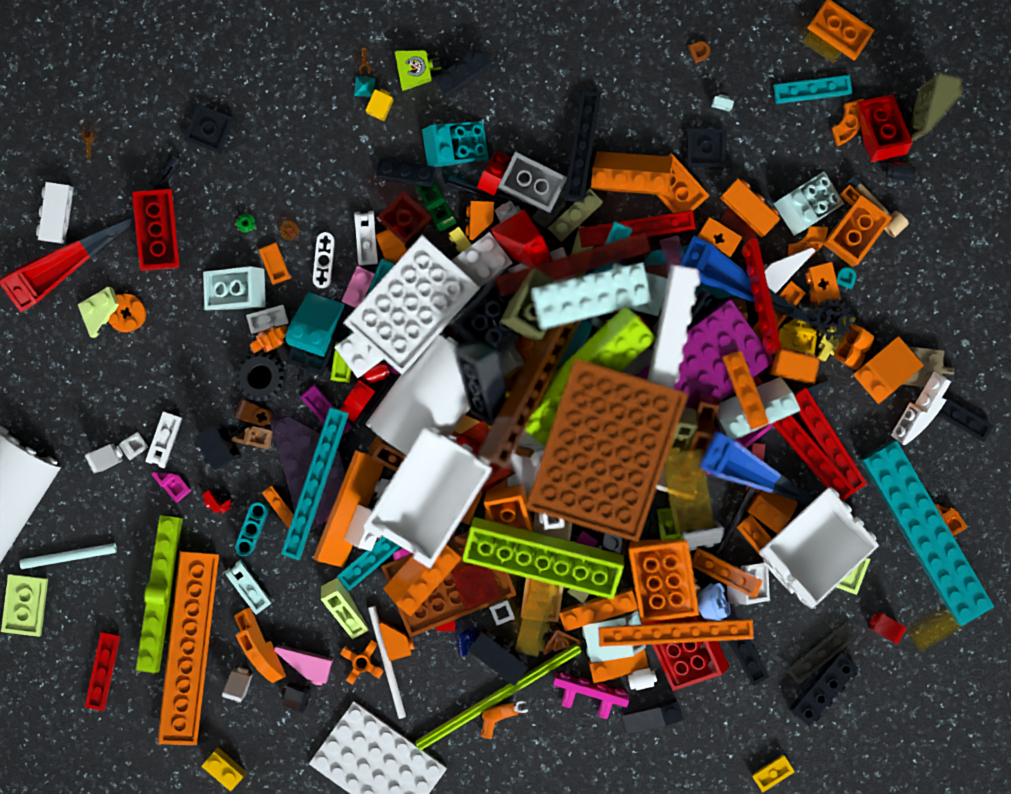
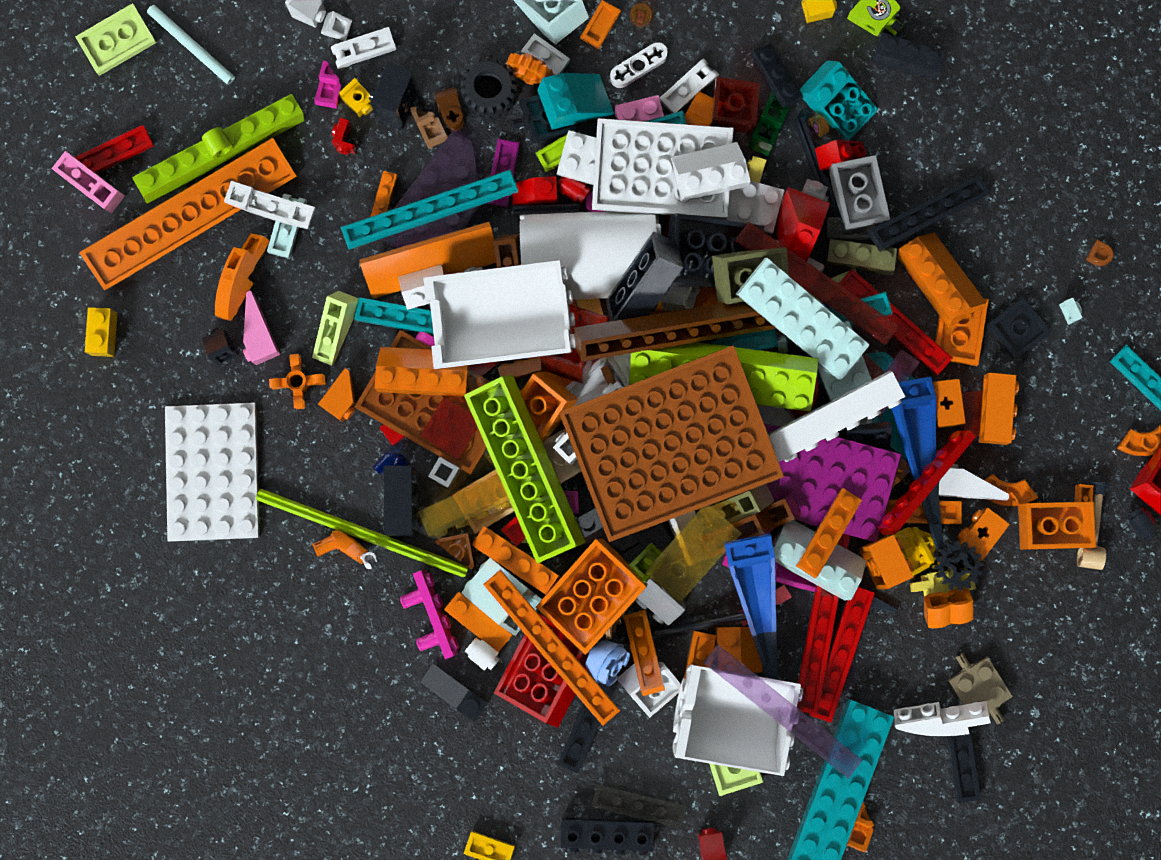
camera: 50 degrees right, 5 degrees down
(113, 700) = (88, 182): none -> bright pink slope
(190, 476) = (350, 92): none -> yellow brick
(226, 589) = (269, 206): none -> white slope
(237, 684) = (189, 283): white slope -> none
(245, 535) = (332, 186): teal beam -> none
(387, 664) = (311, 410): white piece -> none
(440, 275) = (710, 171): none -> white slope
(462, 170) = (819, 124): none -> clear orange tile
(481, 218) = (791, 173): orange slope -> none
(578, 596) = (514, 531): none -> red plate
(809, 203) = (1044, 462): light aqua slope -> none
(837, 514) = (782, 711): none -> clear purple tile
(846, 277) = (1005, 551): teal tile -> none
(888, 370) = (953, 656): orange slope -> none

